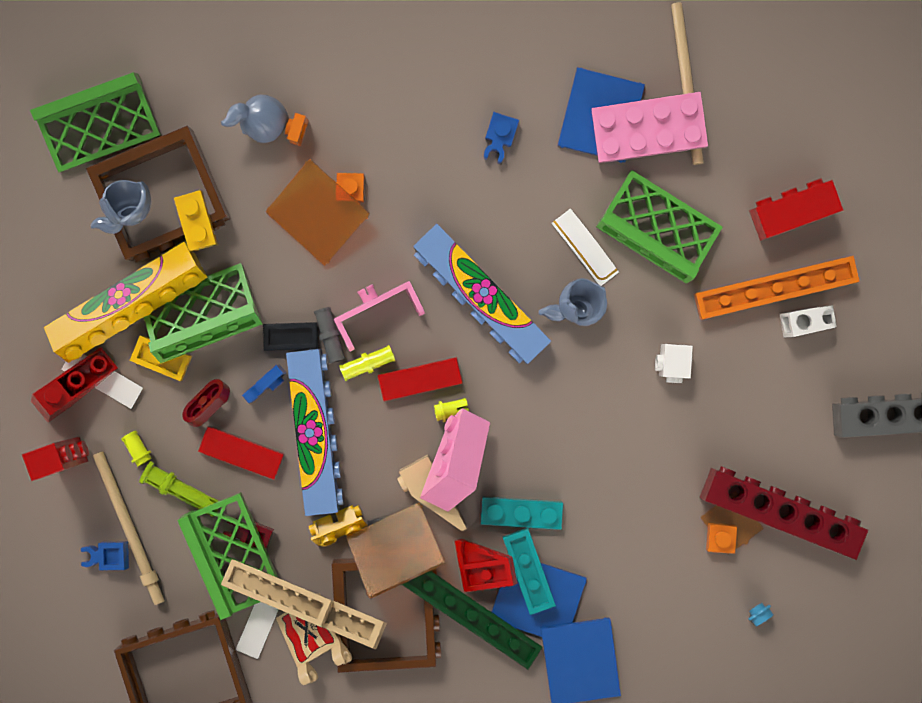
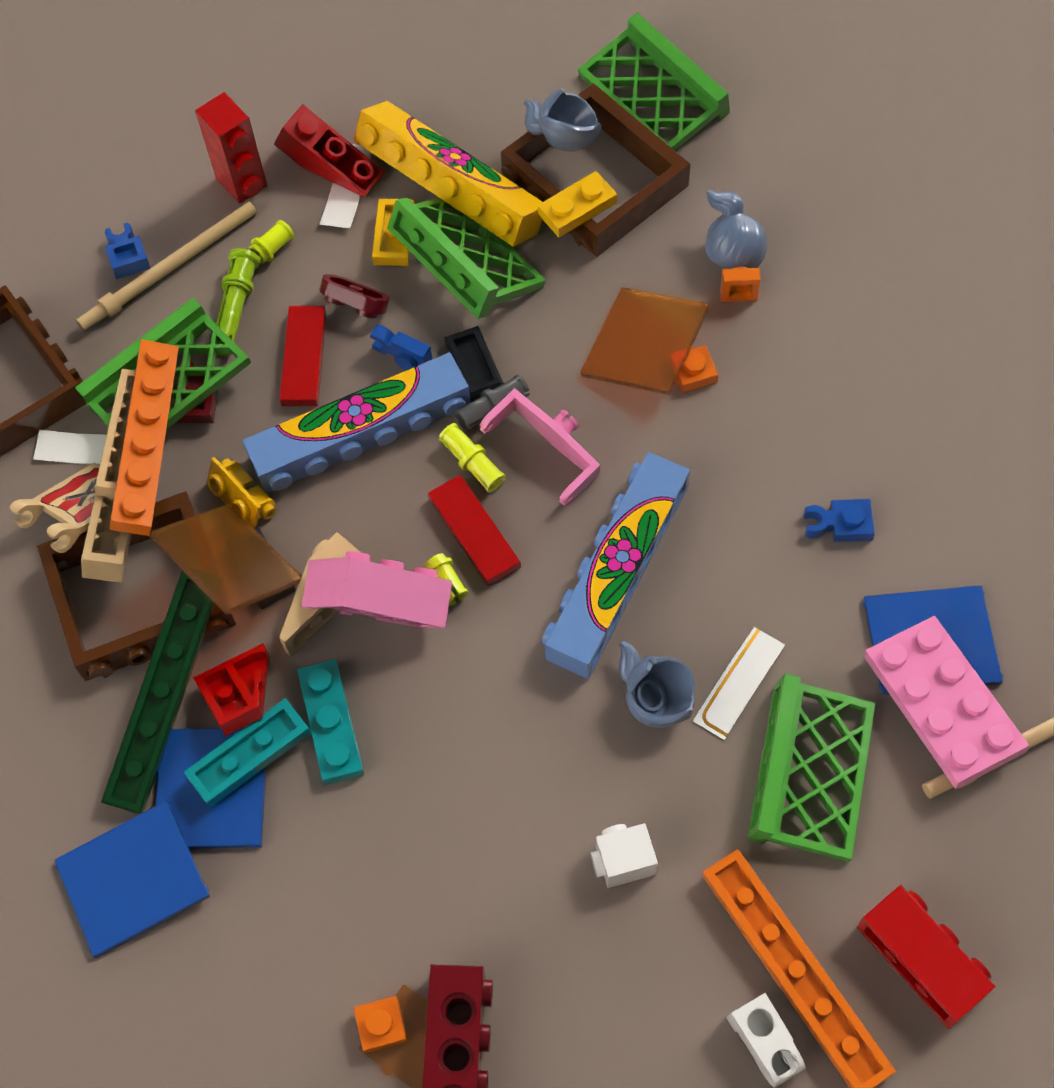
camera: 75 degrees right, 25 degrees down
(287, 583) = (144, 439): none -> orange plate

